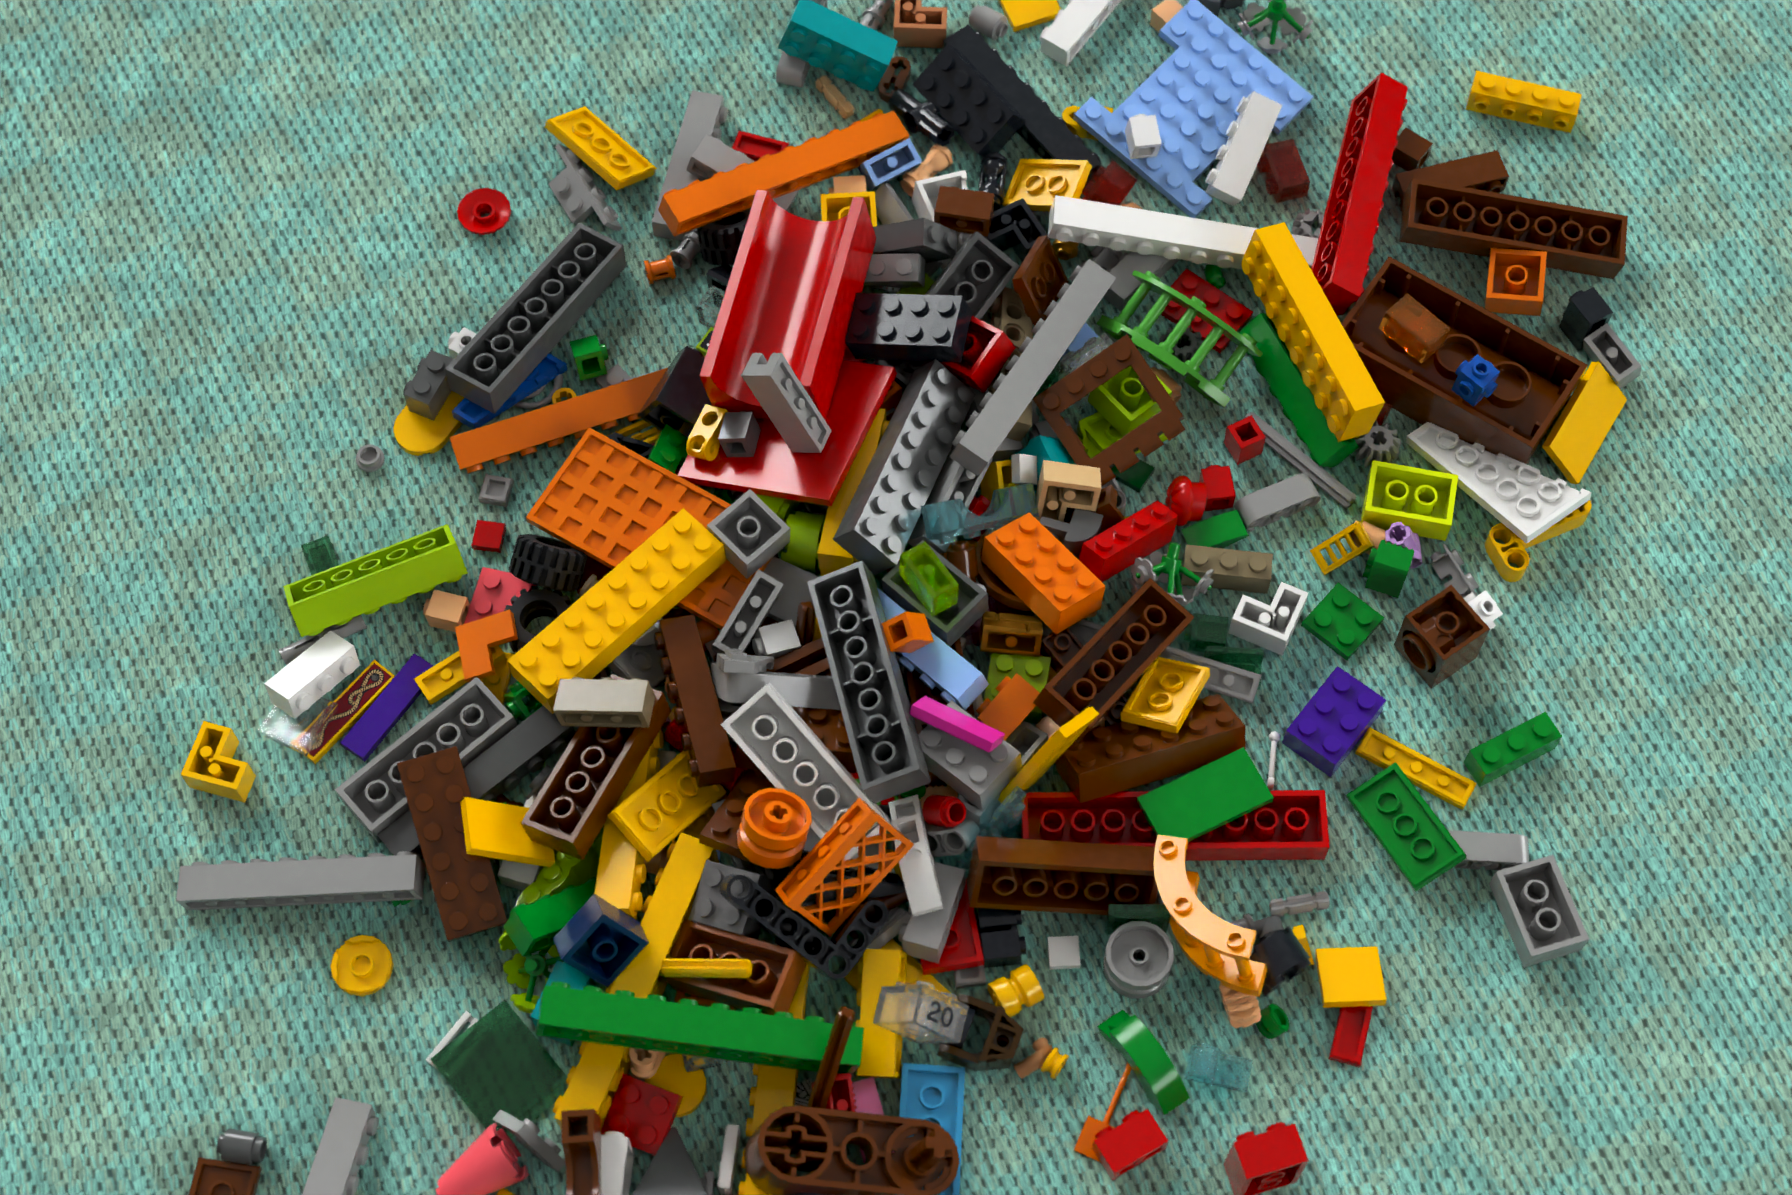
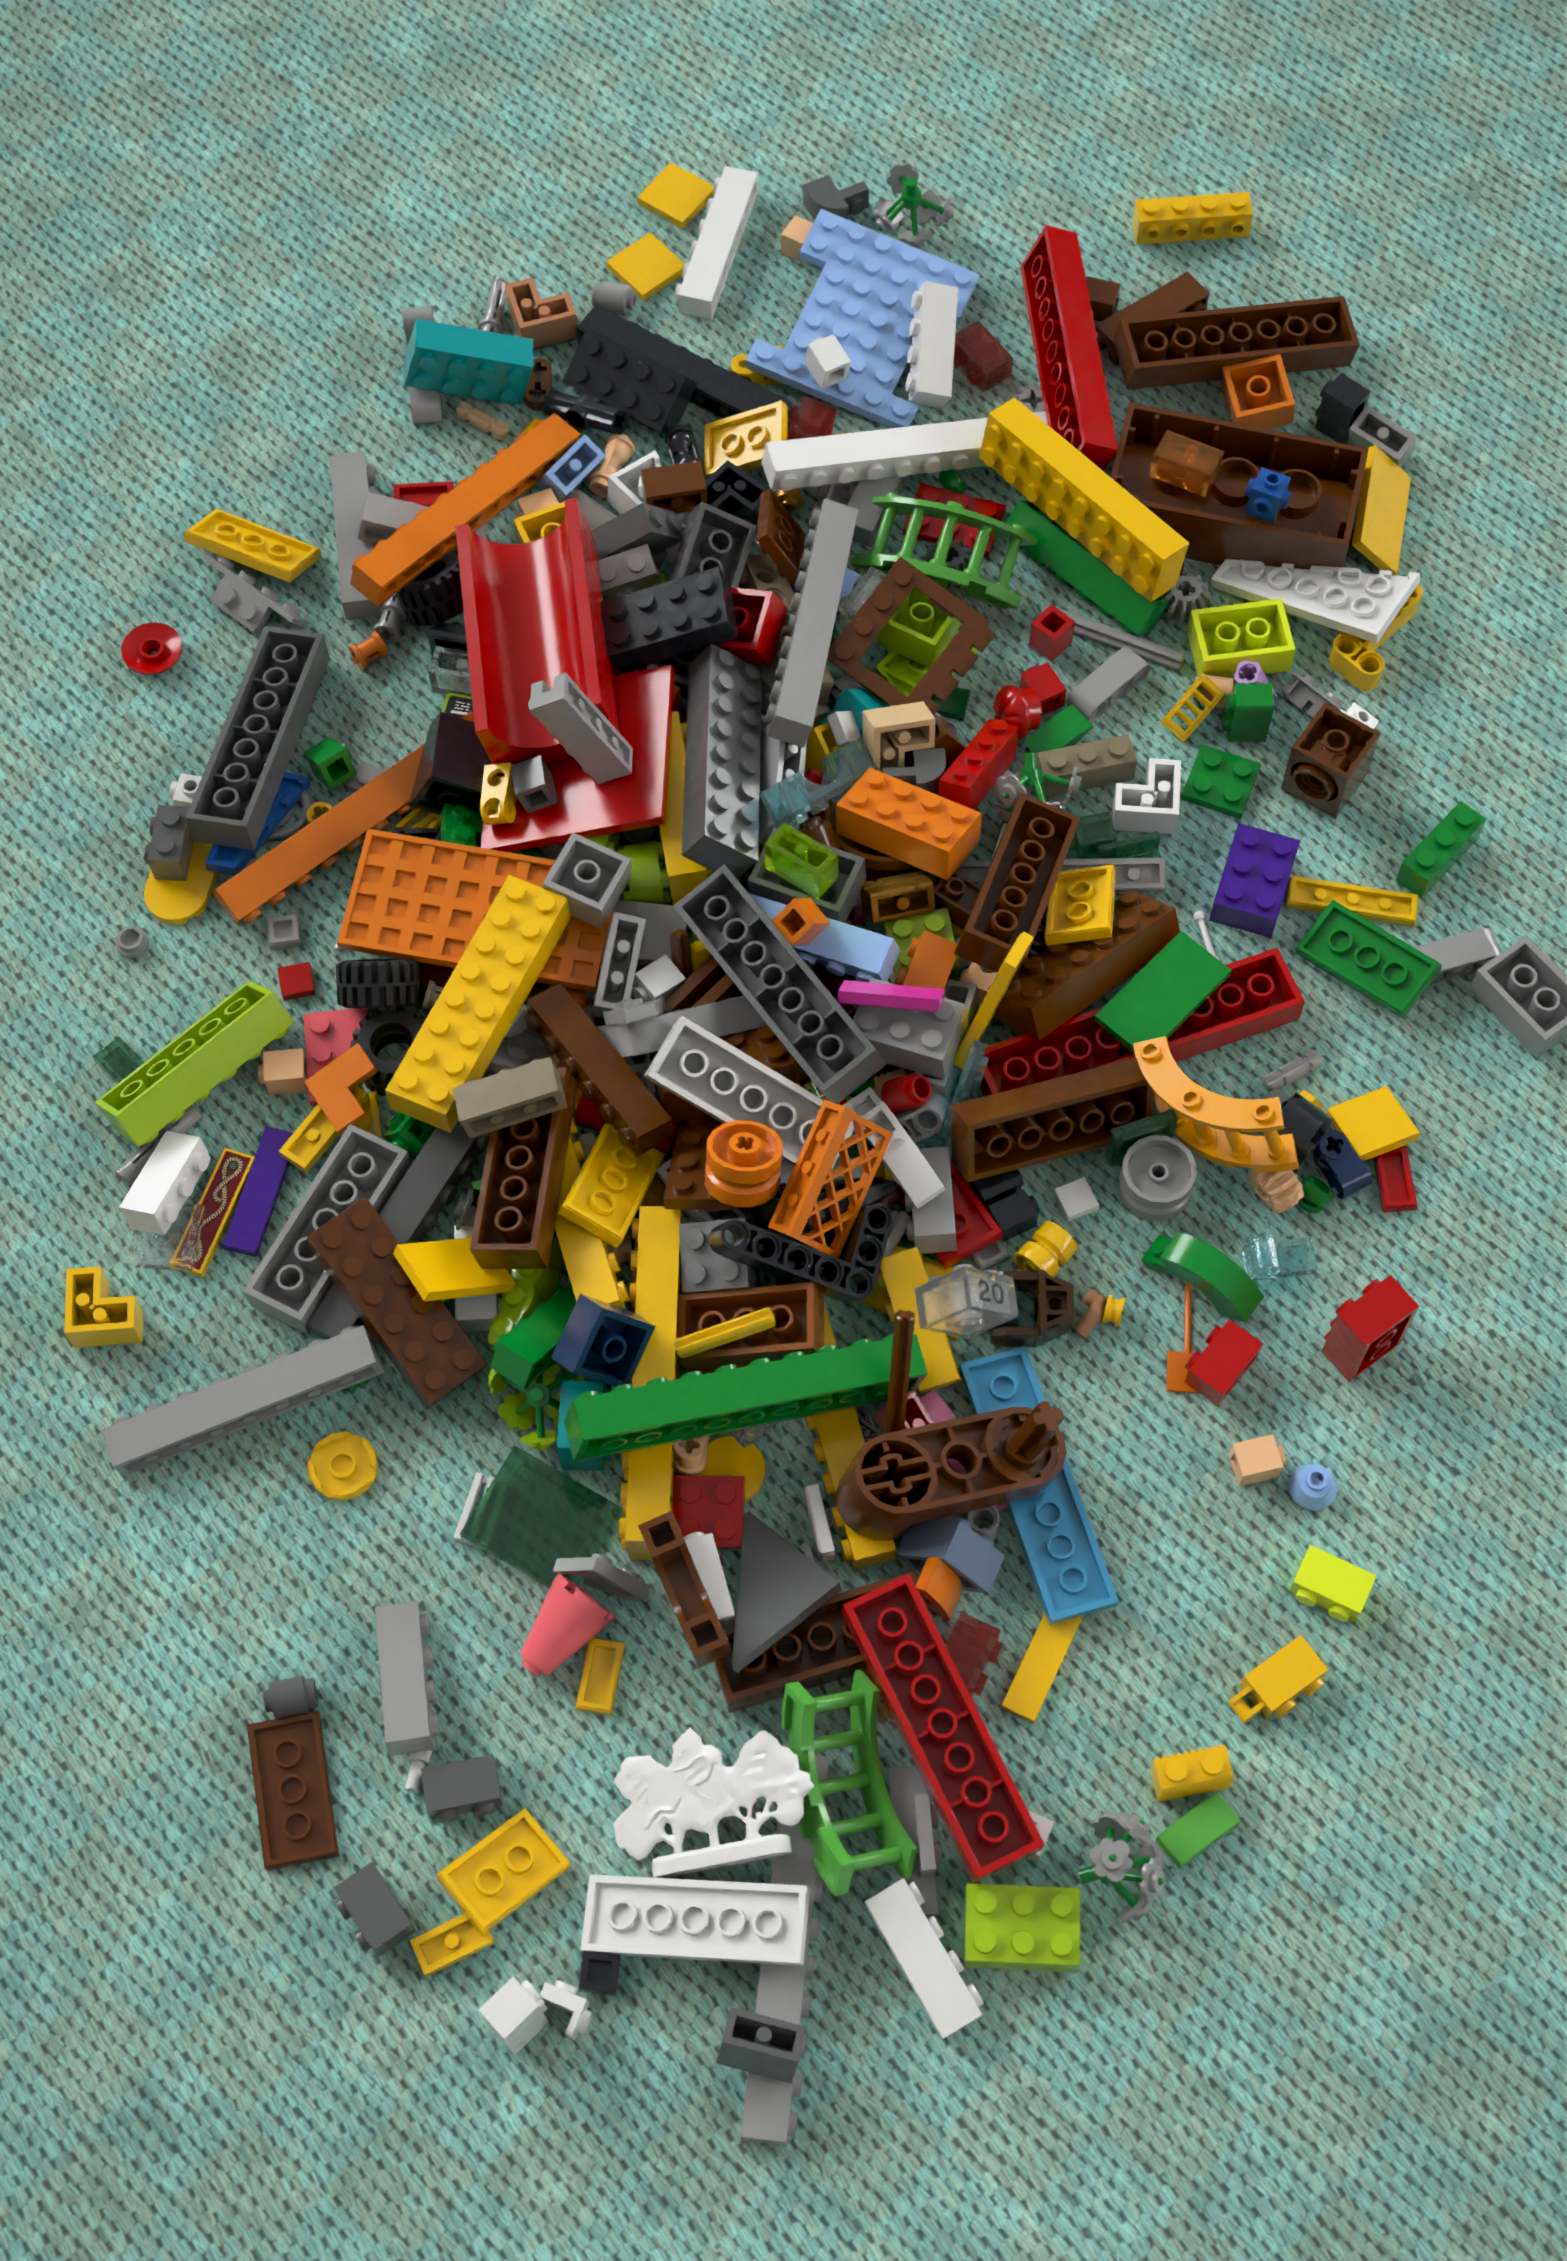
camera: 20 degrees left, 0 degrees up
(1307, 1008) = (1341, 1168): none -> dark blue piece

